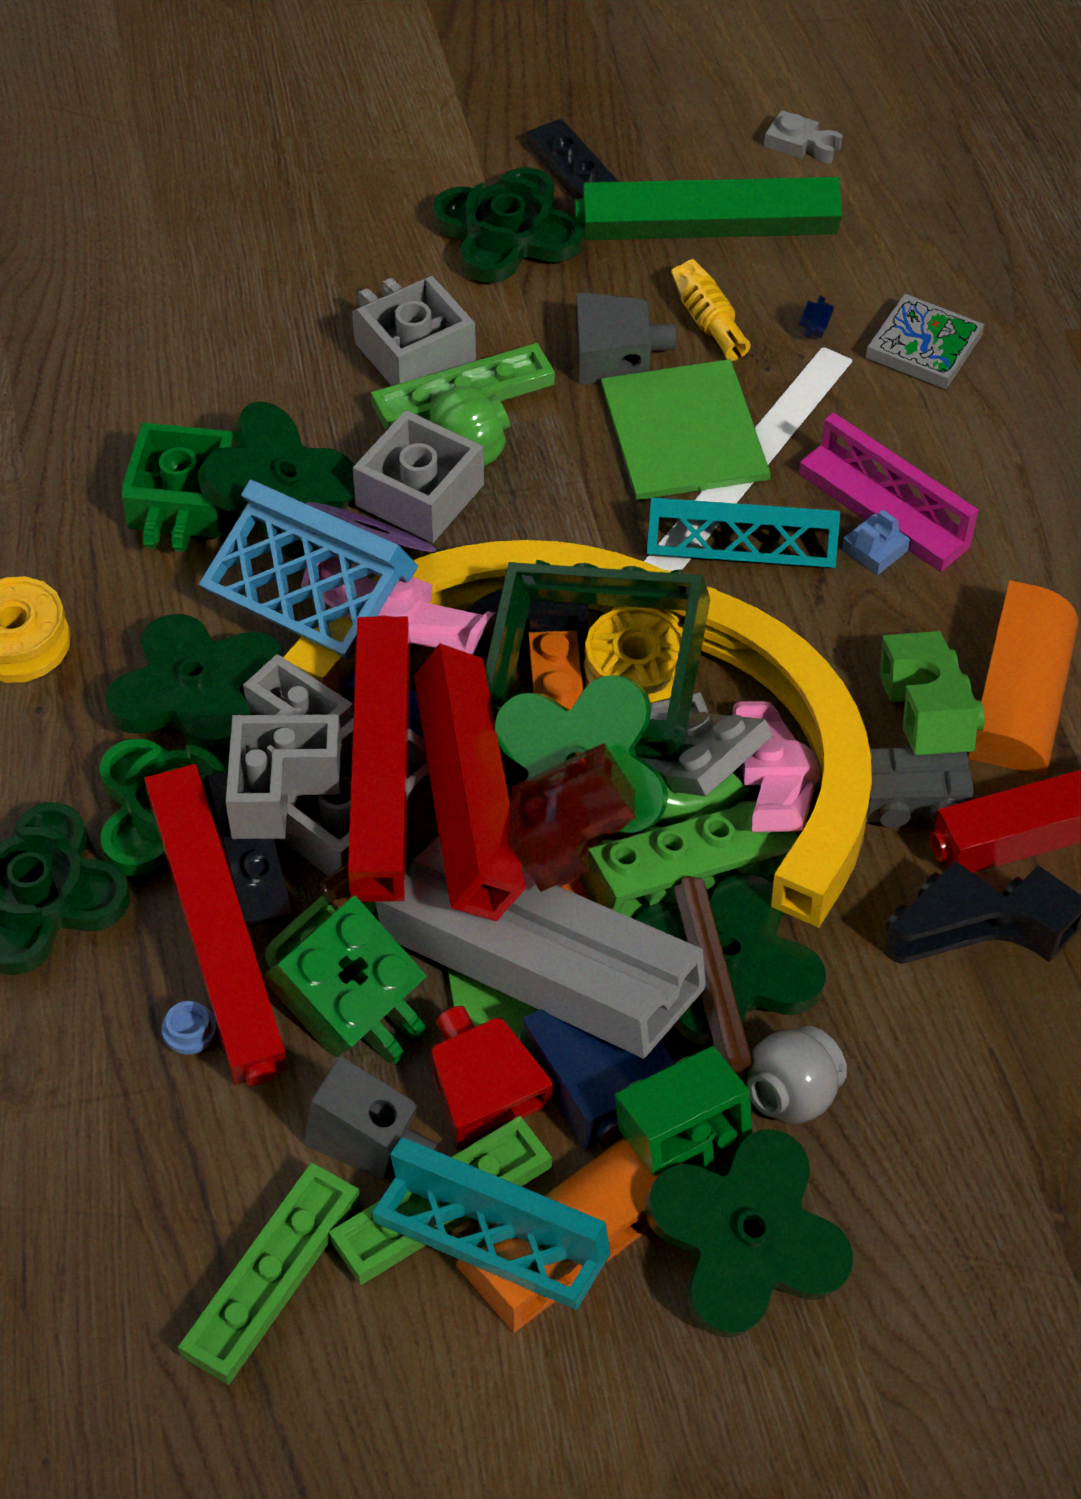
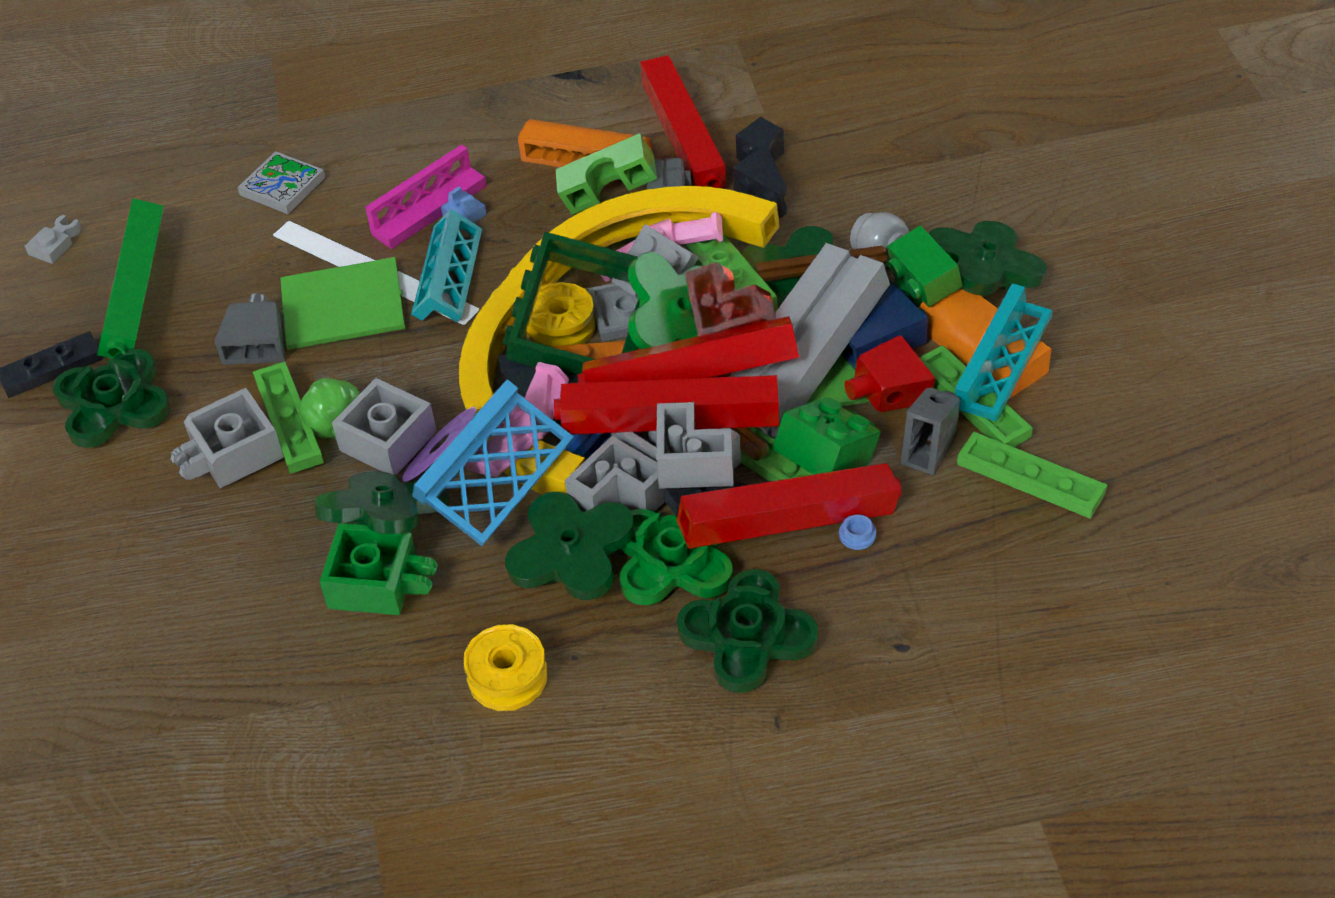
camera: 85 degrees left, 5 degrees down
(709, 308) = (229, 284): yellow hinge -> none
(816, 317) = (252, 229): clear blue plate -> none

